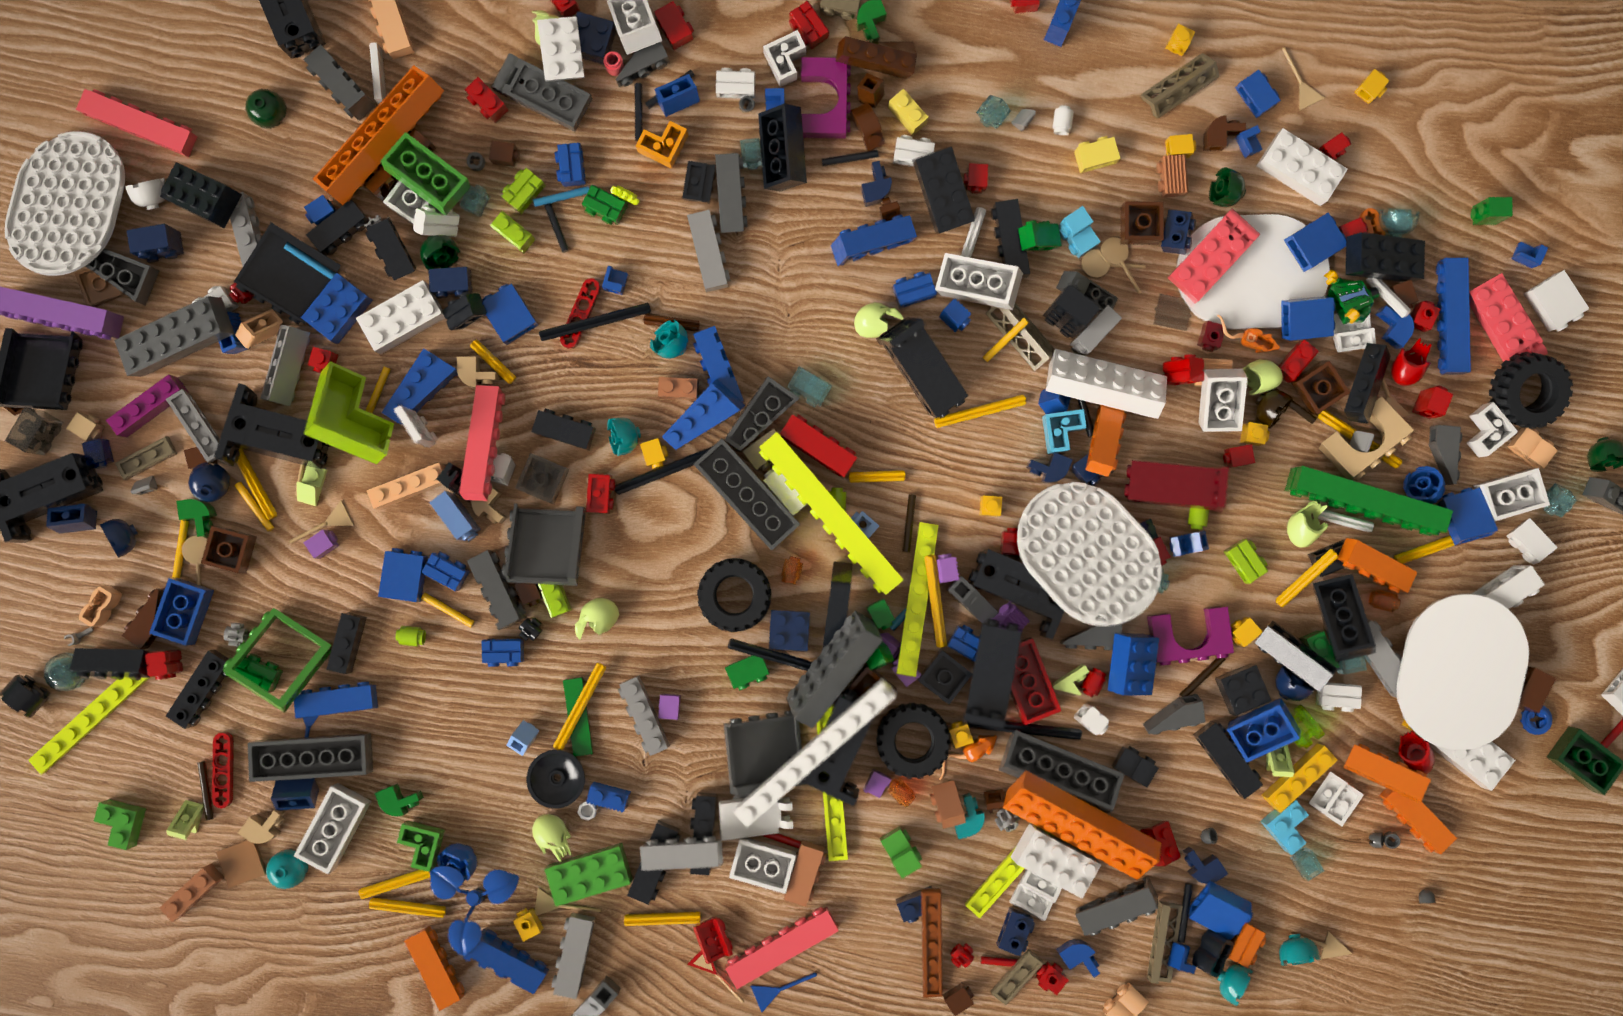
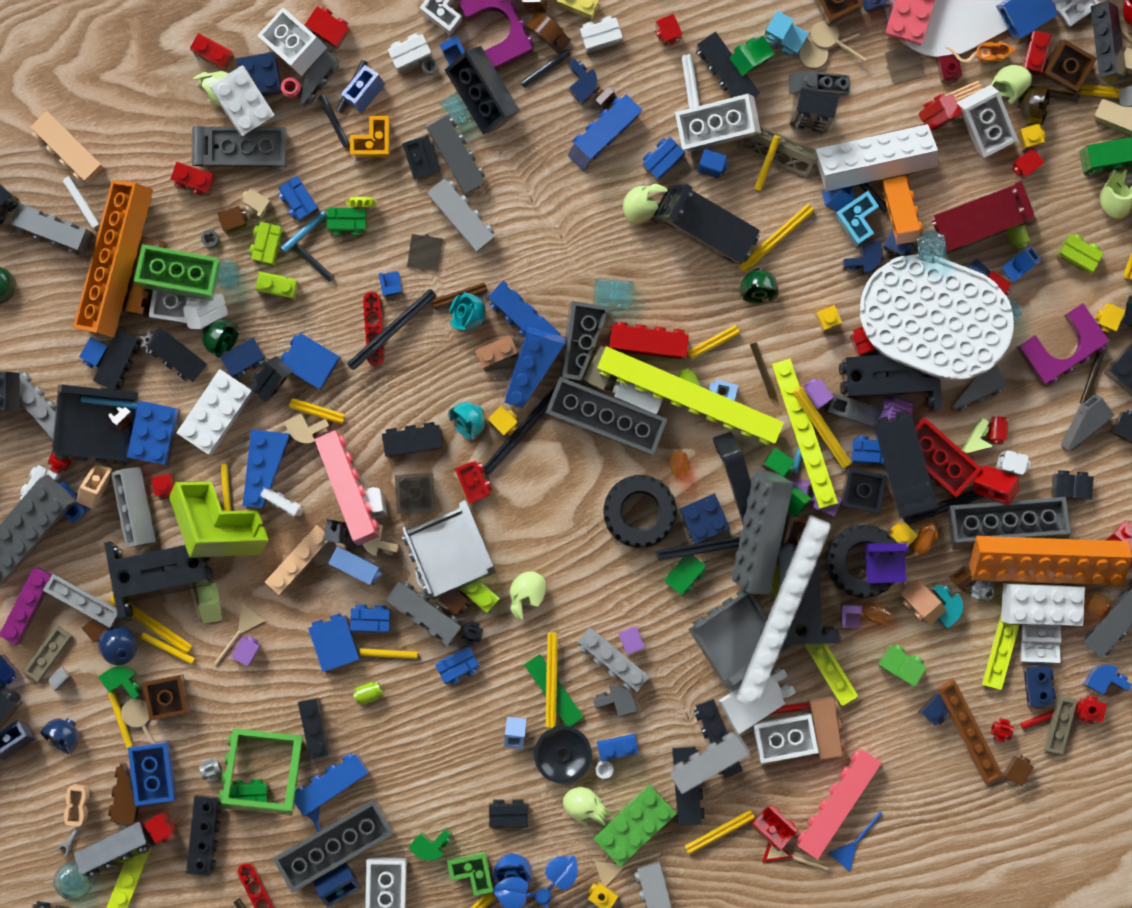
camera: 25 degrees left, 0 degrees up
(313, 282) = (122, 419): none -> tile
(480, 807) = (508, 814): none -> black brick
(531, 150) = (255, 202): none -> tan brick
(633, 751) = (620, 696): none -> dark grey brick
(660, 268) = (424, 252): none -> clear smoke piece
(932, 753) = (886, 562): none -> dark purple bracket
(943, 190) = (645, 56): black brick -> none
(943, 446) = (759, 285): none -> dark green cylinder
(1067, 732) = (996, 485): none -> red brick
(1095, 331) = (844, 117): light grey brick -> none
(1104, 884) = (1097, 604): none -> clear orange brick
(1116, 488) = (931, 247): none -> clear light blue brick
(1133, 664) = (1024, 395): blue brick -> none

